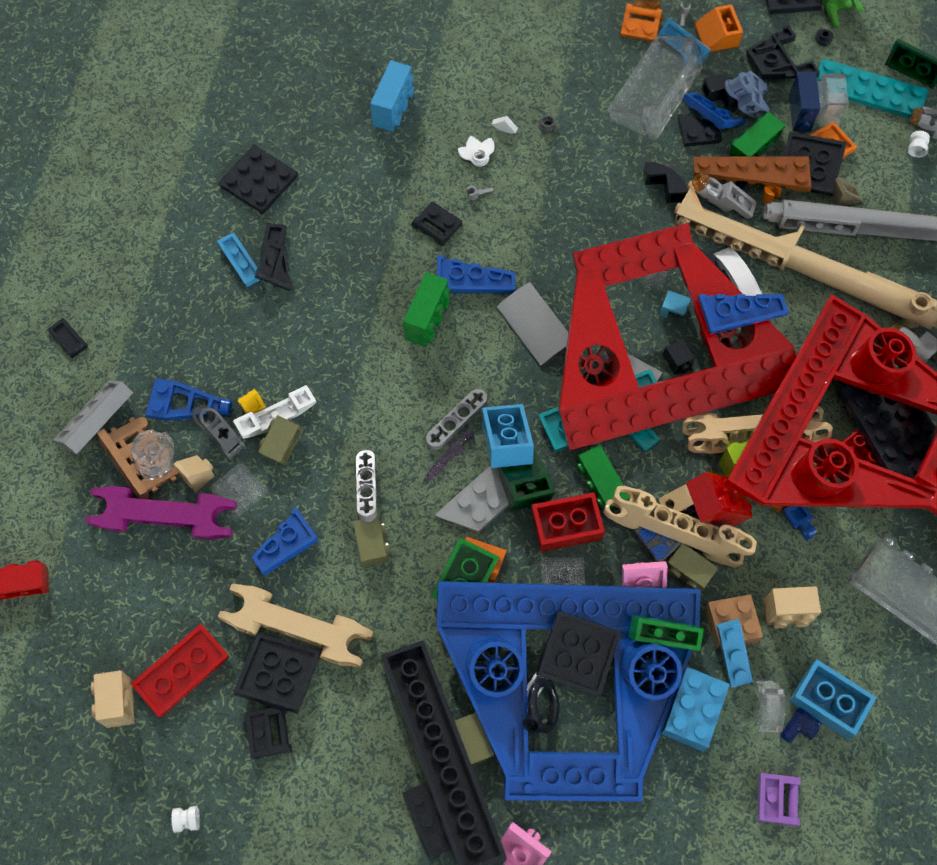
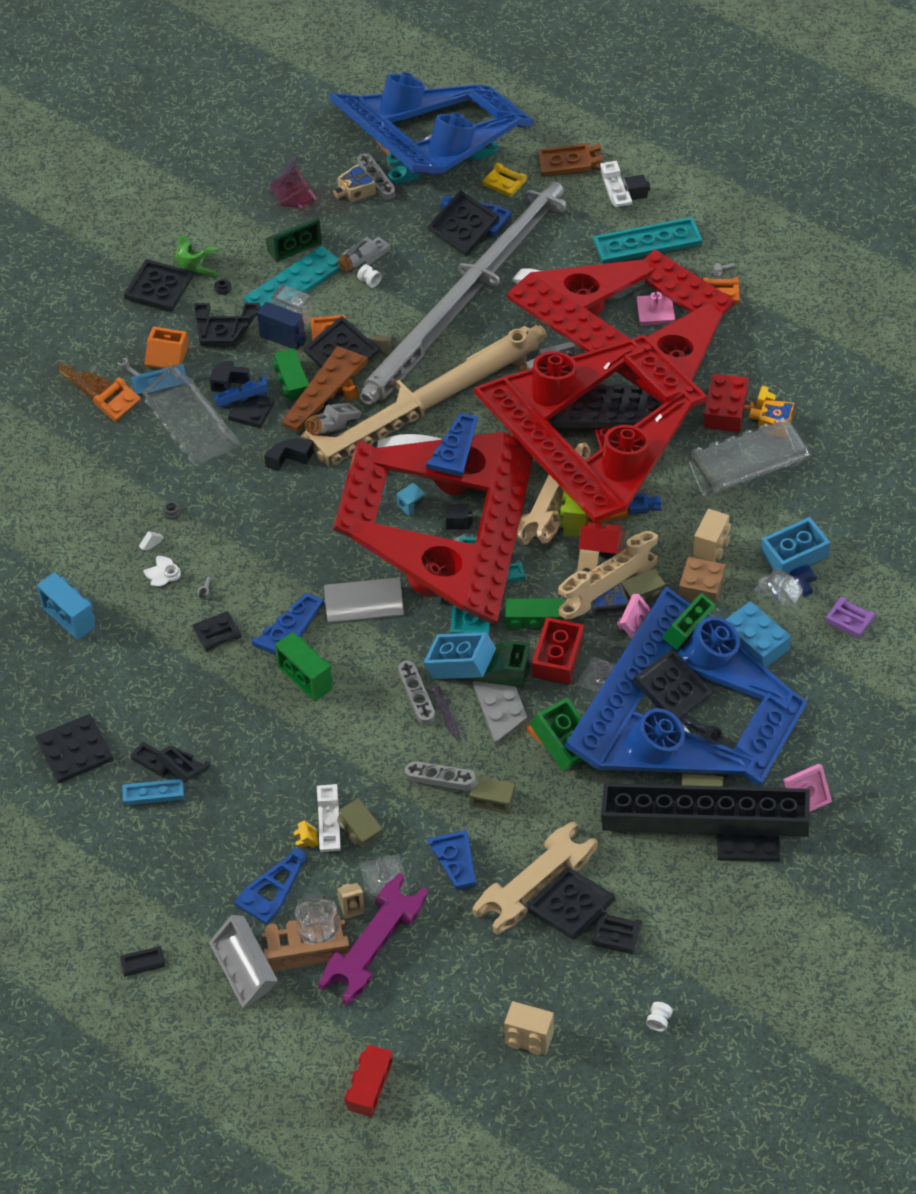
camera: 60 degrees left, 15 degrees down
(180, 670) = (527, 973): red plate -> none
(218, 432) = (325, 863): dark grey piece -> none
(734, 653) = (727, 587): dark azure plate -> none
(749, 92) = (245, 357): sand blue piece -> none

